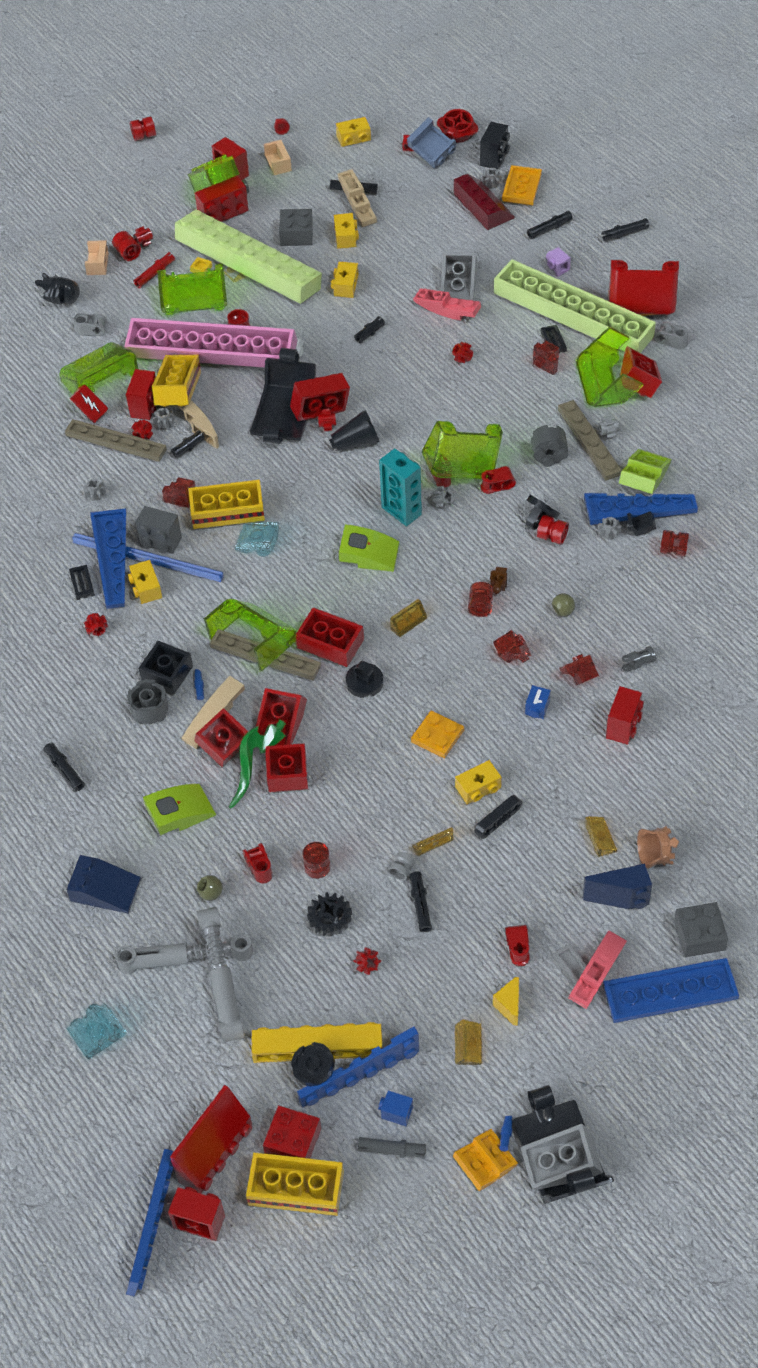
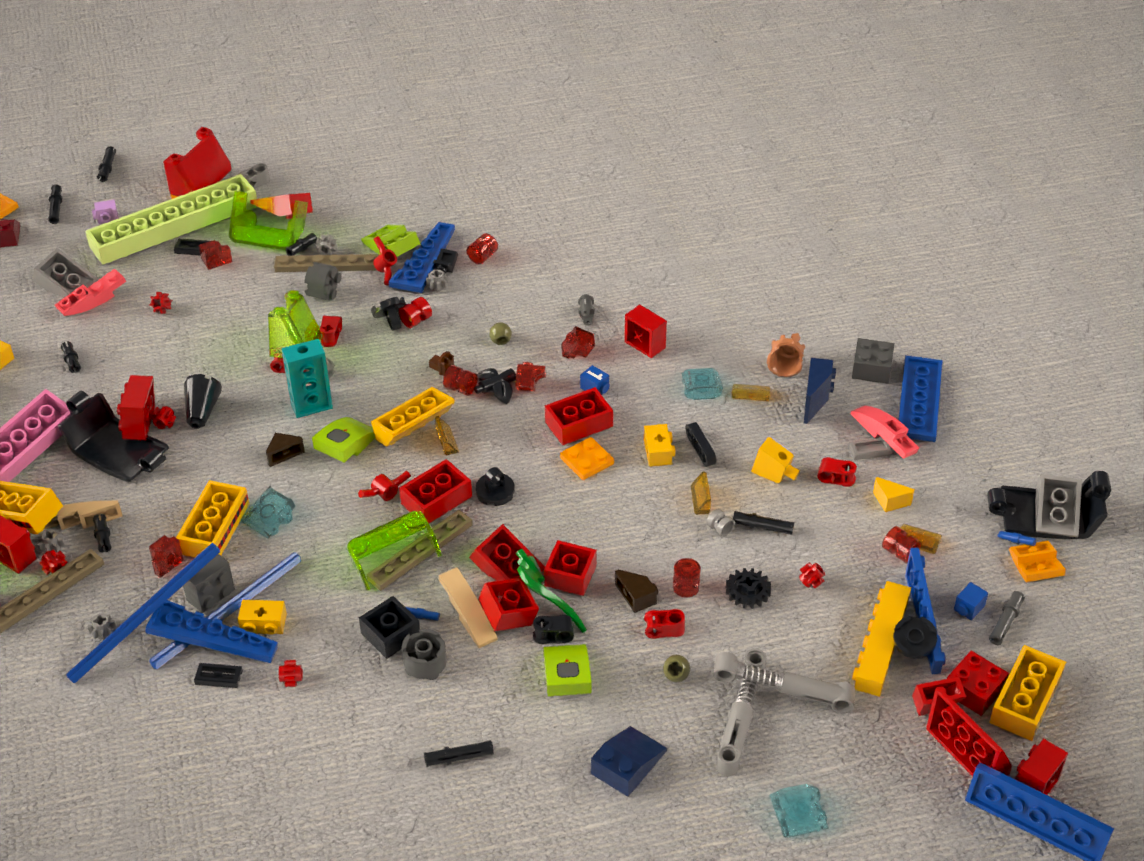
camera: 70 degrees left, 10 degrees down
(104, 504) = (142, 613): none -> blue axle
(216, 781) = (555, 628): none -> black piece
(255, 1103) = (924, 693): none -> red slope
(286, 828) = (636, 590): none -> dark brown slope
(323, 599) = (384, 486): none -> red piece
(331, 511) = (283, 448): none -> dark brown slope
(410, 580) = (411, 416): none -> yellow slope
(441, 1027) = (898, 542): none -> clear red wheel
(479, 705) = (578, 416): none -> red brick
(493, 627) = (497, 383): none -> black plant
(497, 884) = (774, 462): none -> yellow torso
(588, 790) = (702, 383): none -> clear light blue slope
(599, 410) = (301, 244): none -> black pin
(615, 472) = (384, 260): none -> red piece

